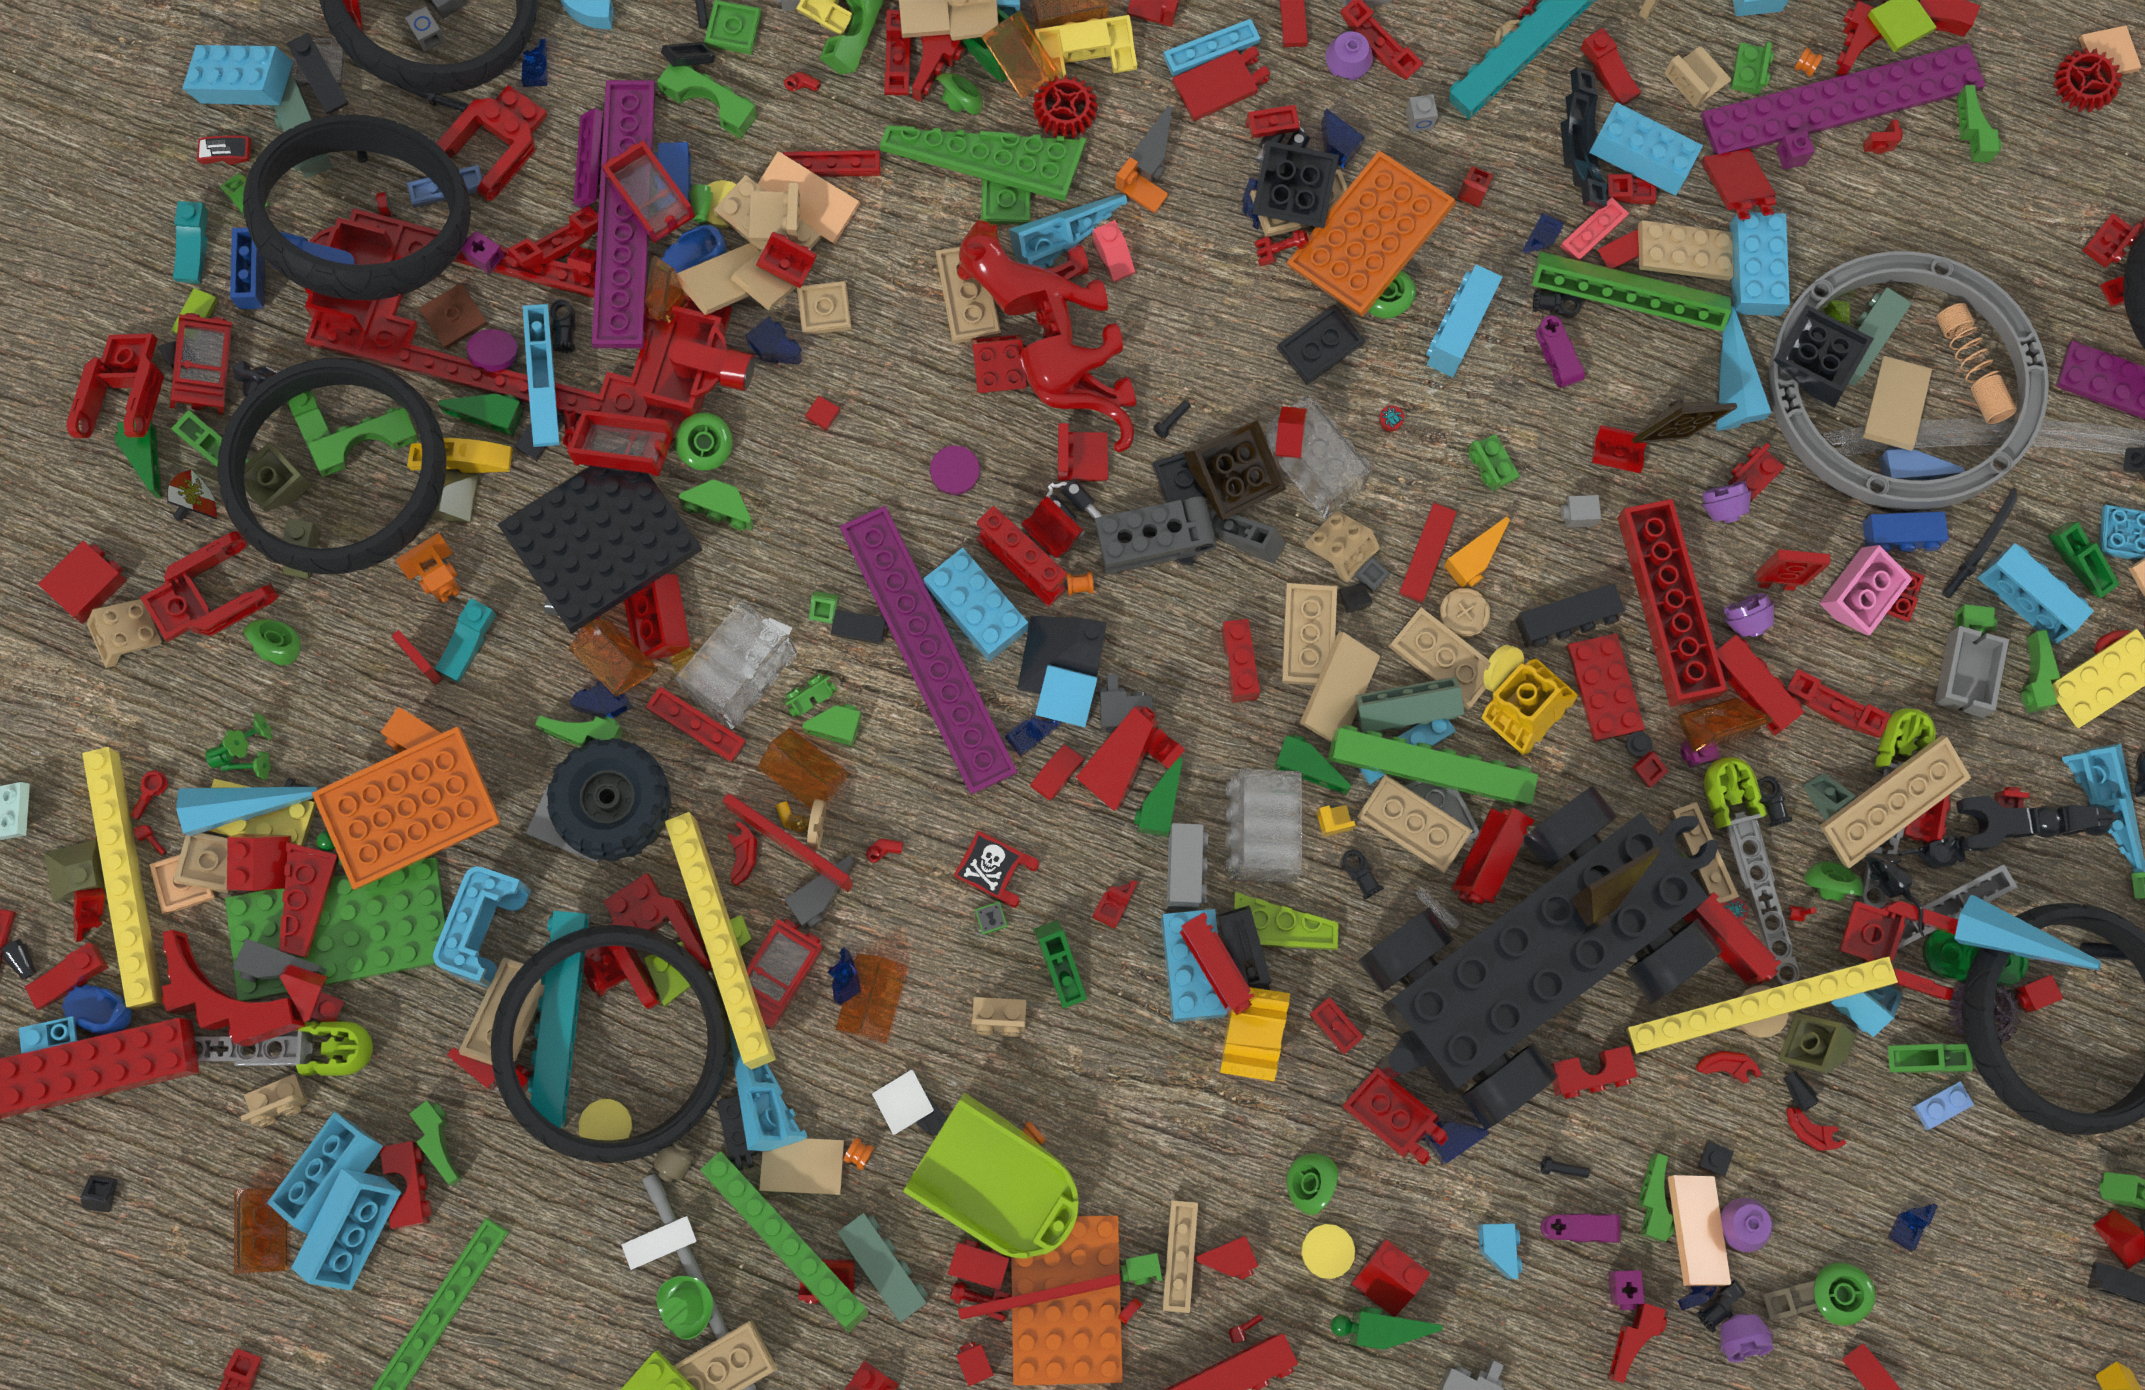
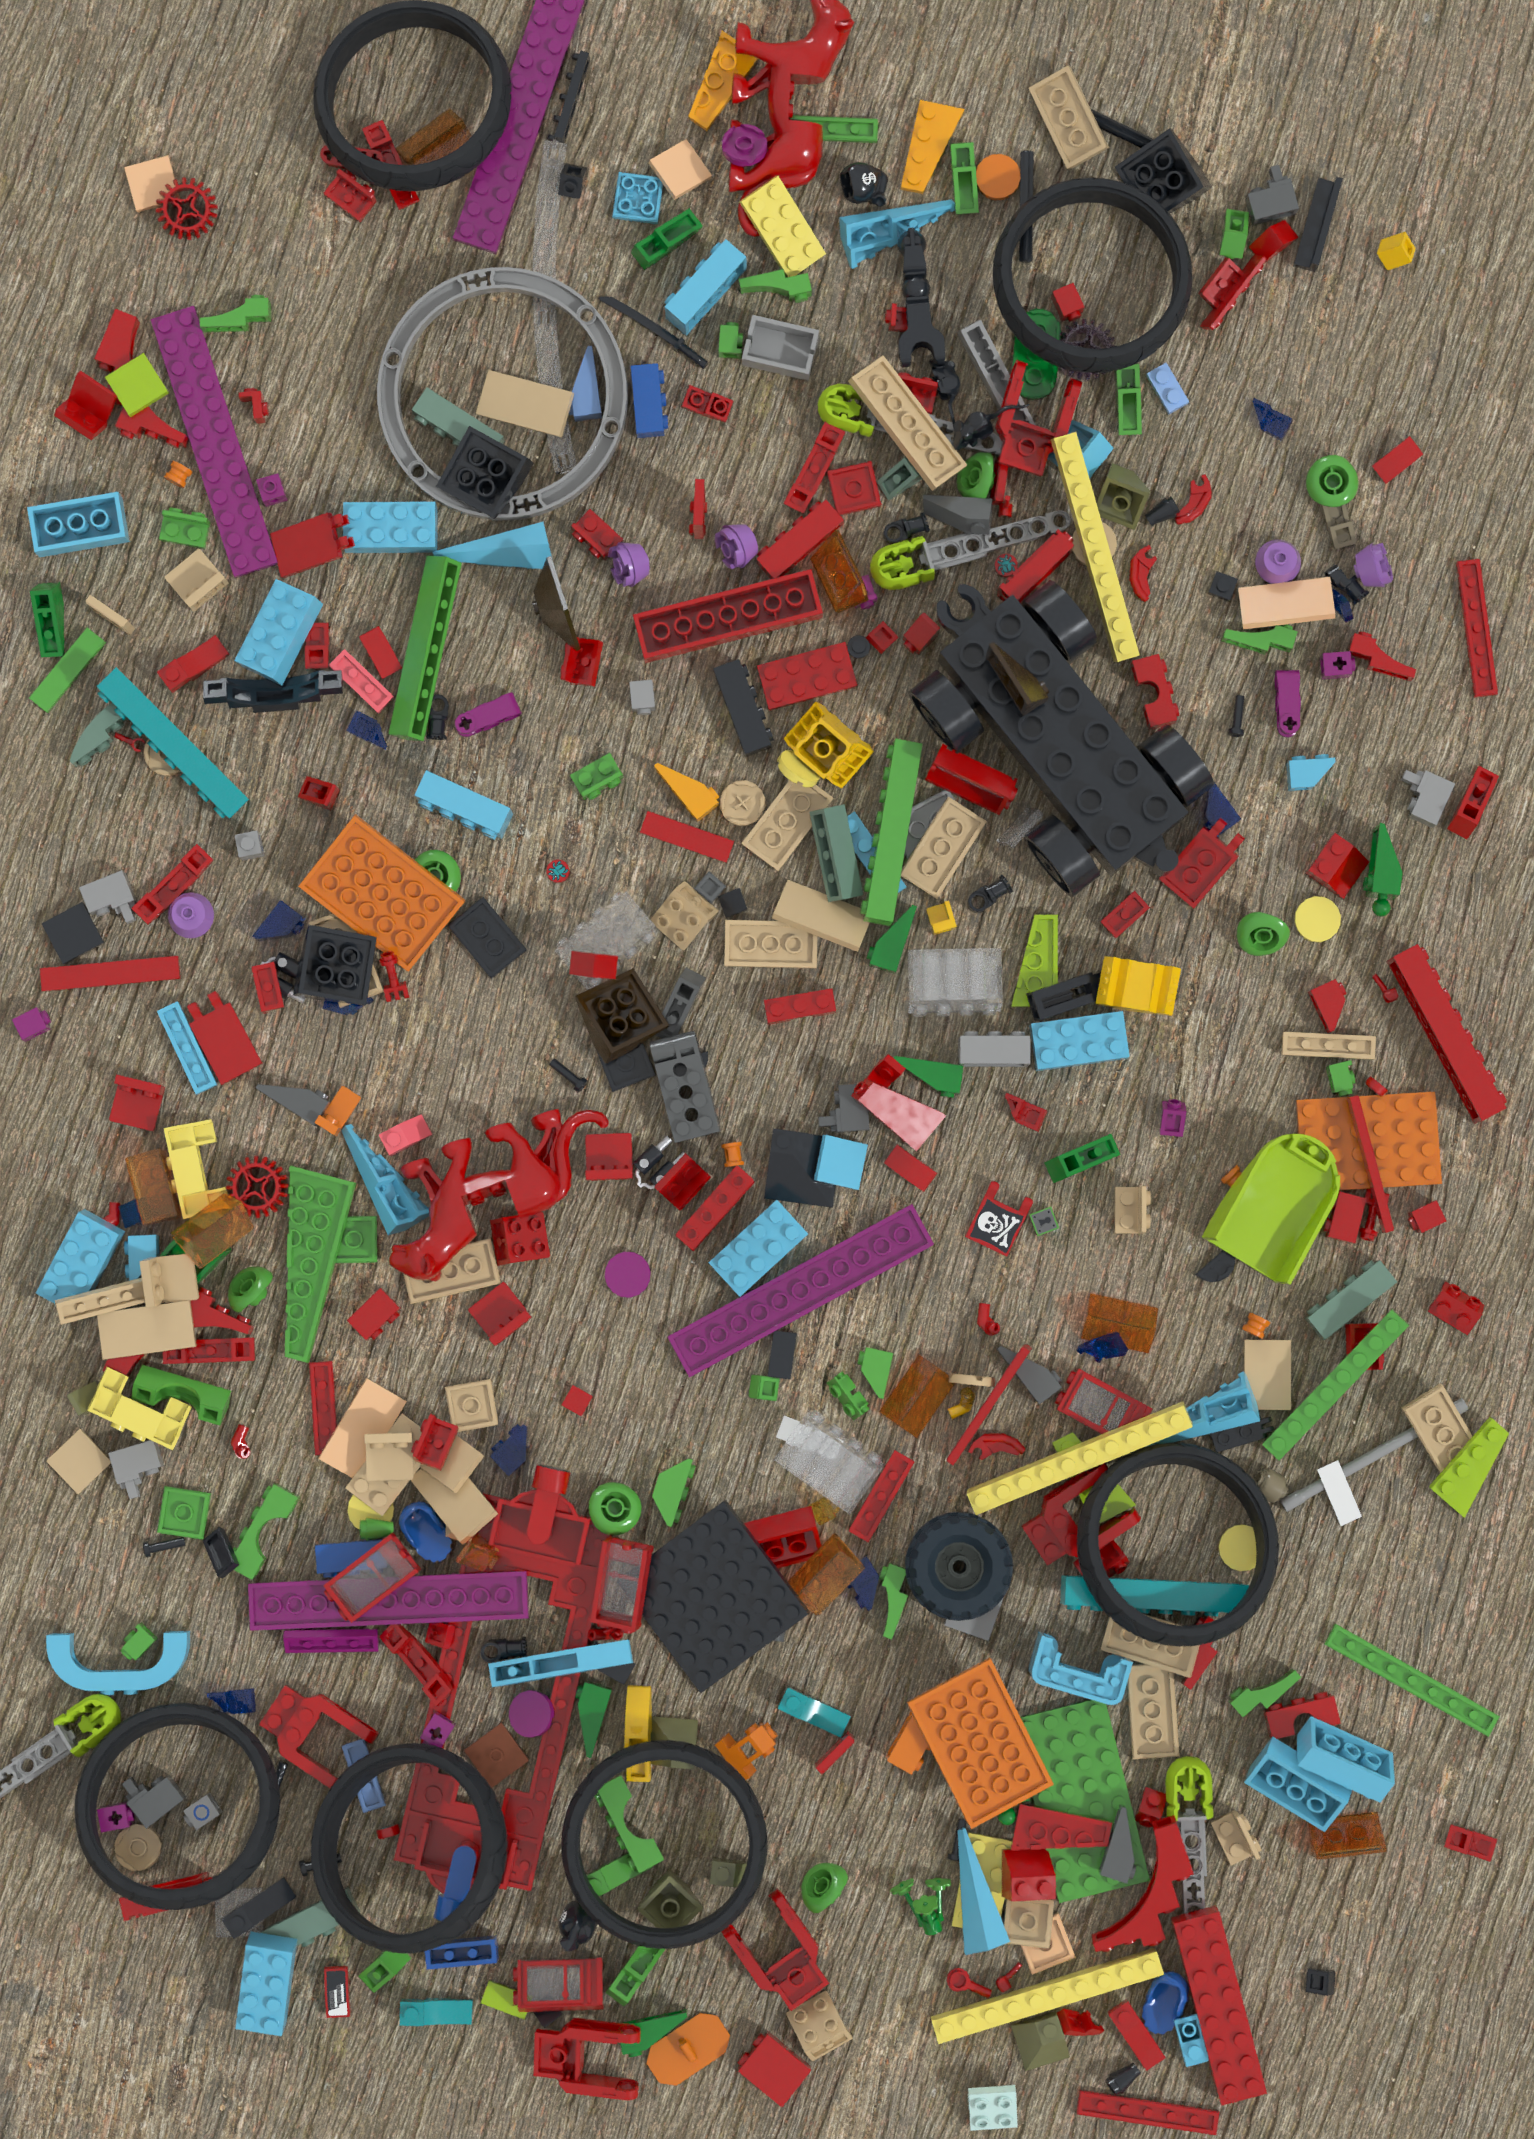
camera: 85 degrees left, 10 degrees up
(118, 496) = (688, 2049): none -> orange shield
(191, 494) = (688, 1978): shield -> none
(303, 988) = (1142, 1817): red slope -> none
(426, 1013) = (1152, 1712): none -> tan tile
(685, 1306) = (1392, 1465): bright green hat -> none
(902, 1102) = (1209, 1290): white sticker -> none
(919, 338) = (500, 1313): none -> red bracket
(926, 214) = (374, 1315): none -> red brick
(1029, 734) = (874, 1194): clear blue slope -> none
(1102, 1069) = (1173, 1118): none -> magenta bracket
(1217, 965) = (1086, 1020): red door -> none
(1656, 808) = (921, 634): none -> red slope
(1685, 250) = (379, 596): tan plate -> none
(1715, 875) = (981, 579): tan plate -> none
(1794, 861) = (963, 513): none -> dark grey slope
(1815, 748) = (854, 488): none -> red tile
(1826, 905) = (998, 490): none -> red tile
(1839, 310) = (438, 453): clear neon green slope -> none
(1866, 589) = (707, 439): bright pink slope -> none
(1988, 392) = (514, 318): light nougat piece -> none
(1992, 928) = (1025, 342): medium azure wedge -> none
(2066, 1176) = (1226, 286): none -> red bracket

